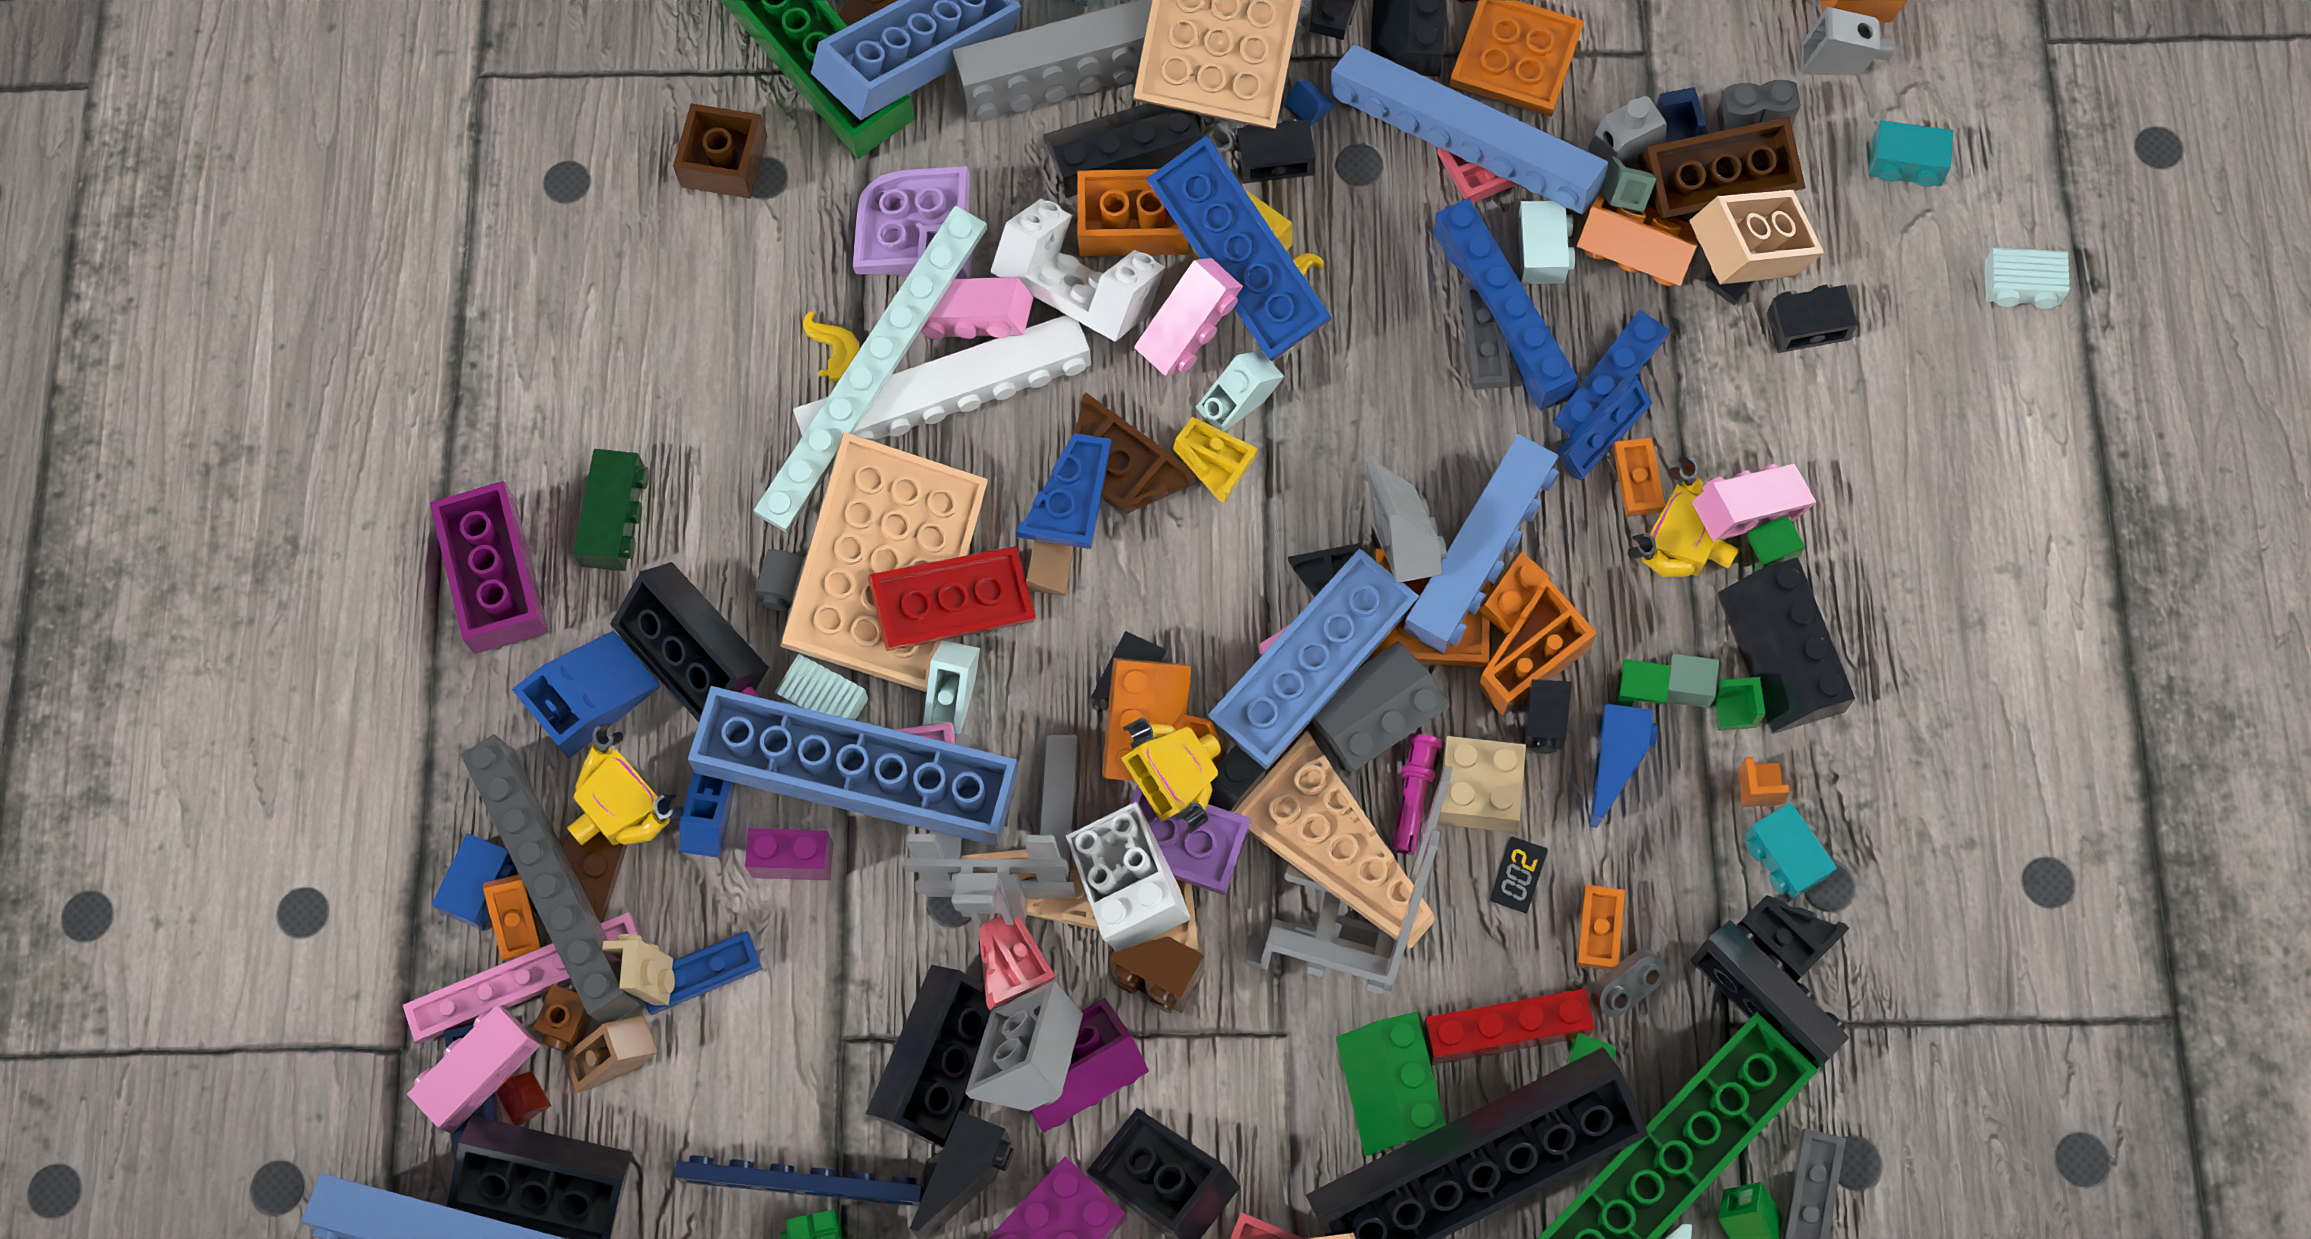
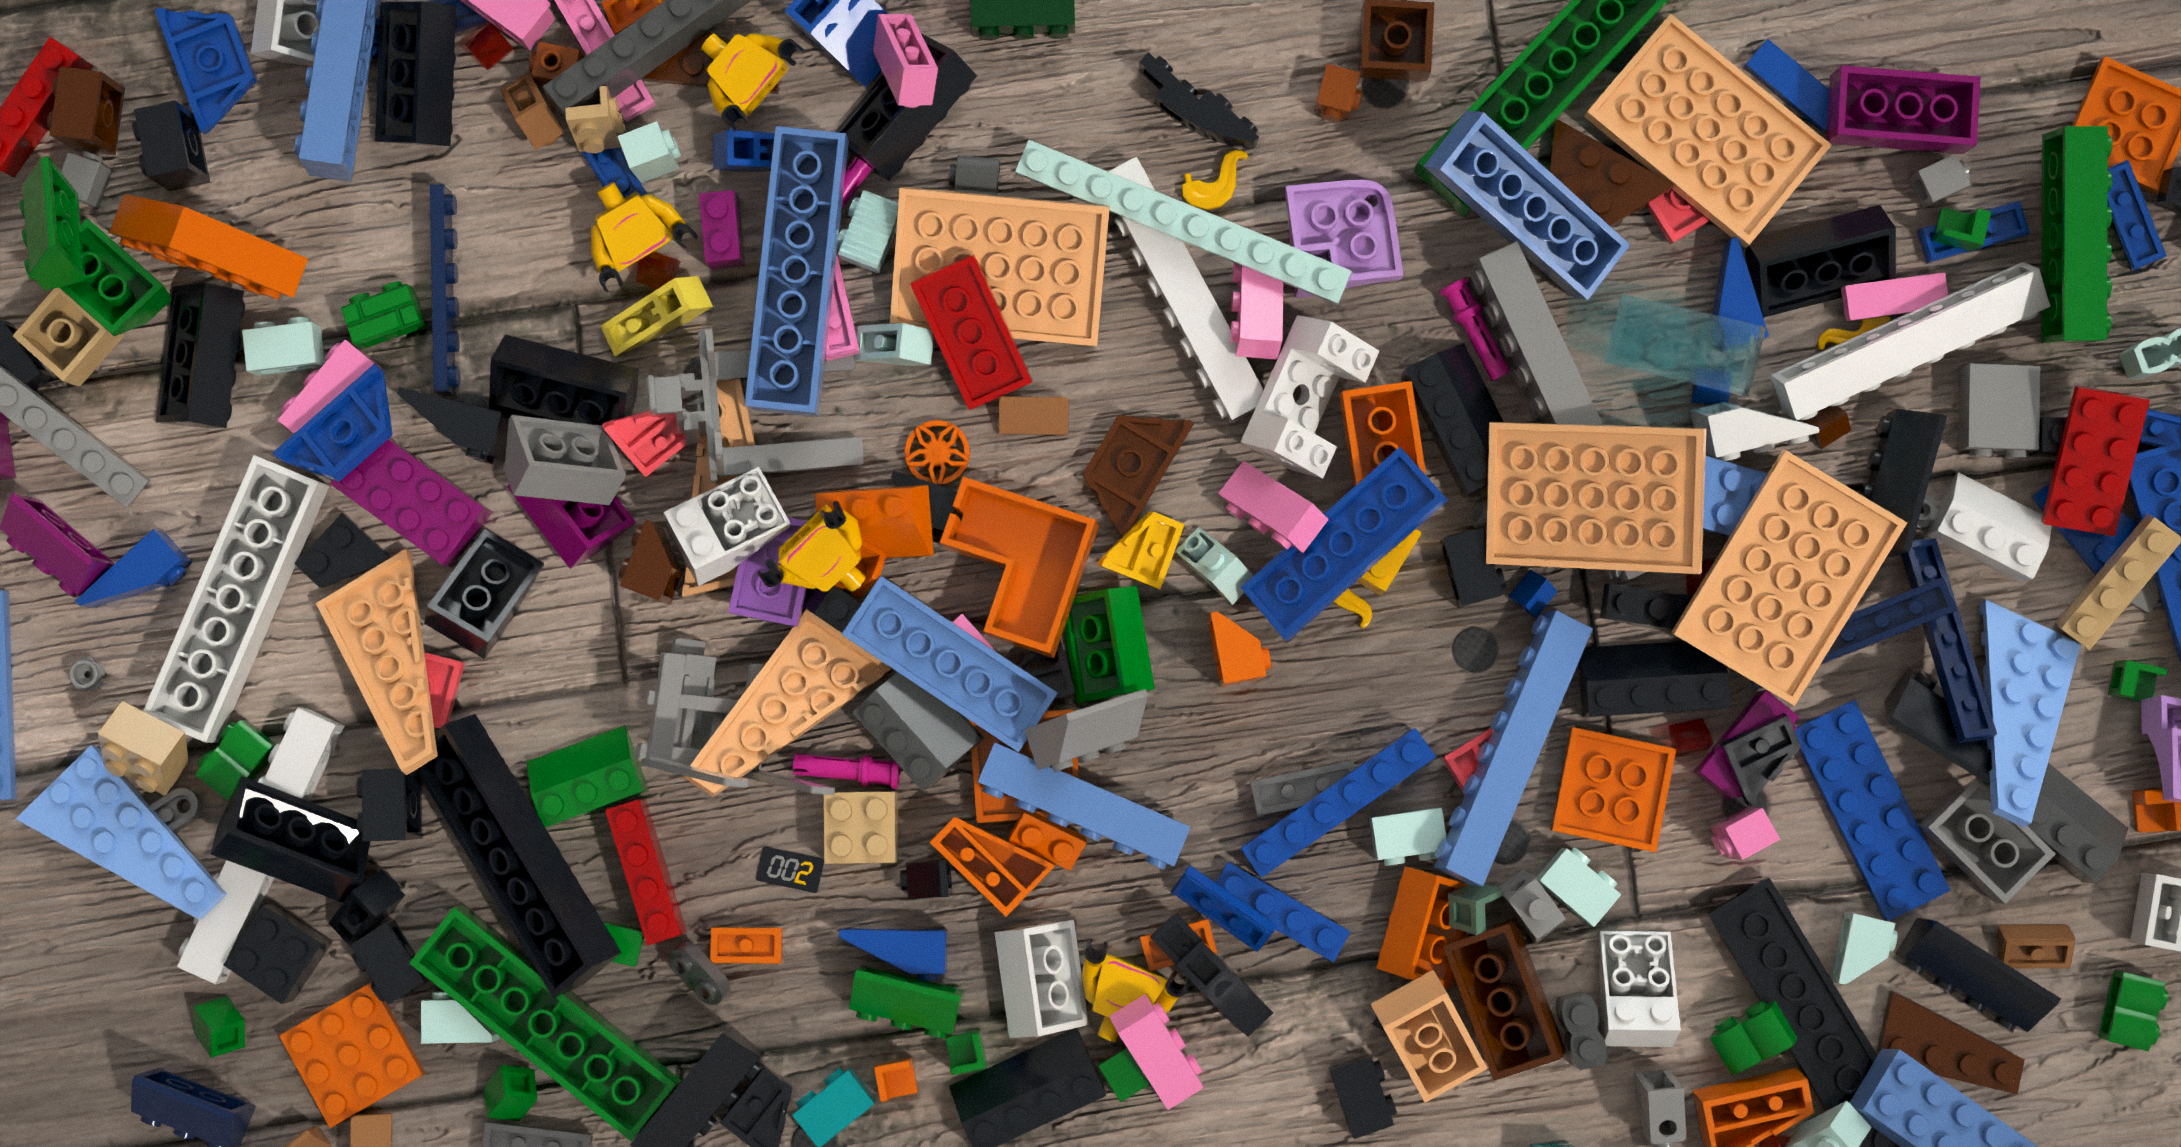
camera: 85 degrees right, 15 degrees up
(641, 618) = (905, 60): none -> bright pink brick
(685, 917) = (650, 151): none -> light aqua brick
(761, 345) = (1206, 116): none -> black slope
(763, 215) = (1338, 93): none -> dark orange brick
(771, 951) = (631, 230): none -> yellow torso
(822, 936) = (656, 270): none -> clear red slope
(873, 942) = (657, 314): none -> light yellow slope
(1016, 123) = (1468, 314): none -> dark pink pin
(1072, 496) = (1083, 424): blue wing -> none
(1075, 659) = (937, 452): none -> orange wheel
(1204, 555) = (1040, 555): none -> orange piece
(1309, 508) = (1108, 645): none -> green slope
(1336, 369) = (1236, 652): none -> orange slope
(1610, 89) = (1578, 886): none -> light aqua brick
(1642, 682) = (972, 964): green panel -> none
(1665, 619) = (1041, 979): none -> white slope
(1676, 437) = (1211, 975): none -> black slope
(1679, 757) = (905, 1001): none -> green slope
(1682, 114) = (1561, 954): dark blue panel -> none
(1692, 680) = (983, 1008): sand green panel -> none
(1719, 52) = (1637, 989): none -> white slope

